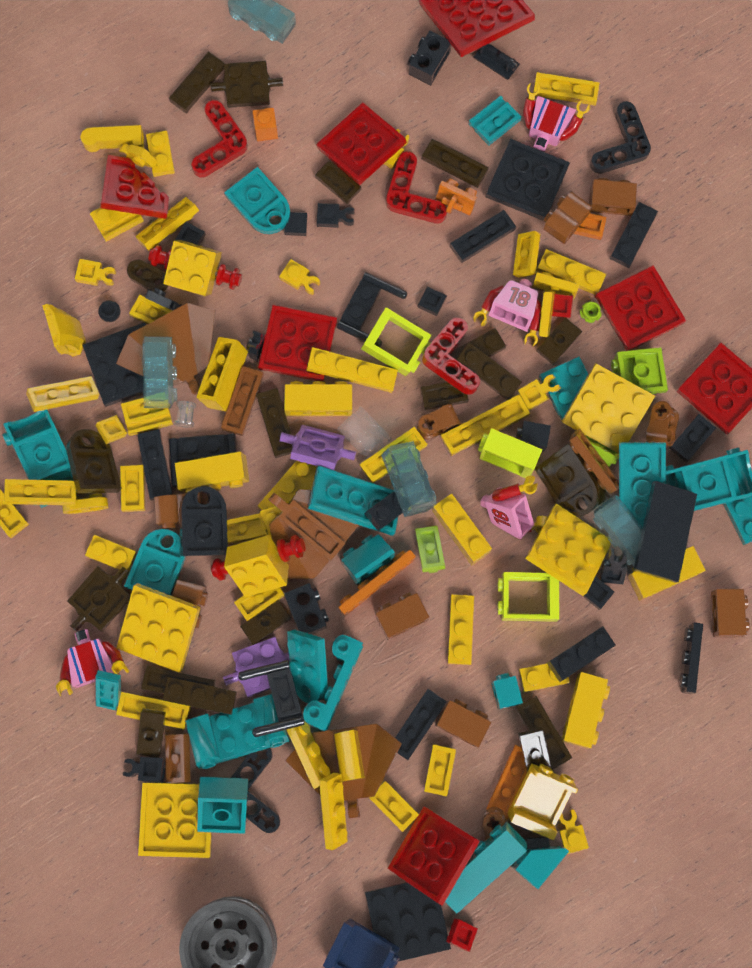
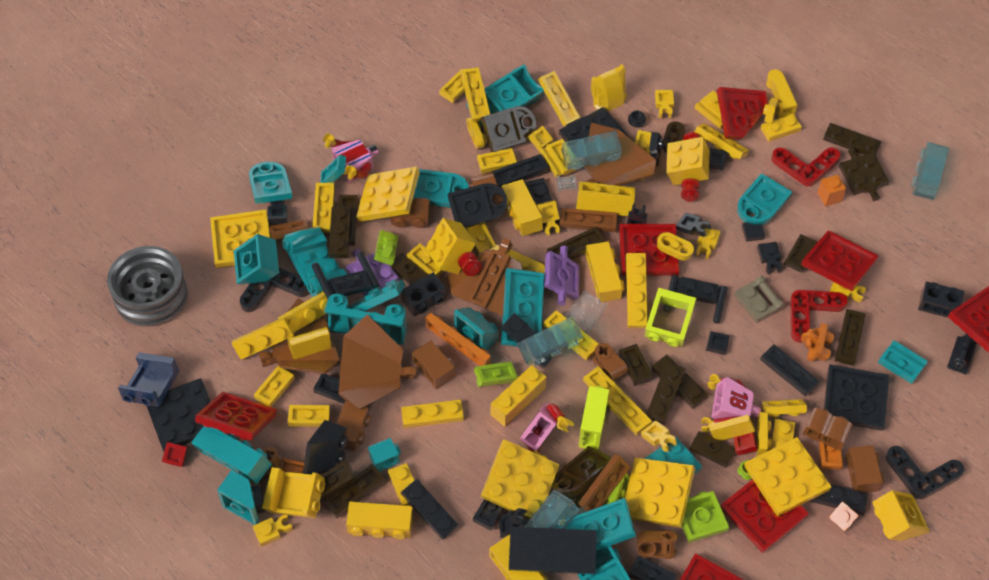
camera: 80 degrees right, 20 degrees down
(99, 599) = (403, 154): dark brown plate -> none
(104, 773) = (270, 184): none -> teal plate
(110, 553) = (441, 156): yellow plate -> none
(150, 733) = (305, 207): dark brown plate -> none
(230, 443) = (549, 214): none -> yellow plate
(231, 643) = (386, 247): none -> lime hinge
(275, 288) = (691, 224): none -> black plate
(307, 313) = (675, 246): none -> yellow plate
(390, 248) = (754, 302): none -> dark tan plate
(399, 690) = (370, 364): none -> dark orange panel
(444, 359) = (665, 354): red beam -> none
(496, 754) = (325, 448): none -> black slope
(534, 434) = (616, 437): black brick -> none
(550, 121) = (918, 403): torso -> none
(552, 597) = (474, 477): neon yellow window -> none
(566, 88) = (956, 415): yellow plate -> none
(611, 274) = (787, 476): none -> yellow plate
(660, 232) = (844, 516): none -> plate
(670, 179) = (900, 516): none -> yellow slope

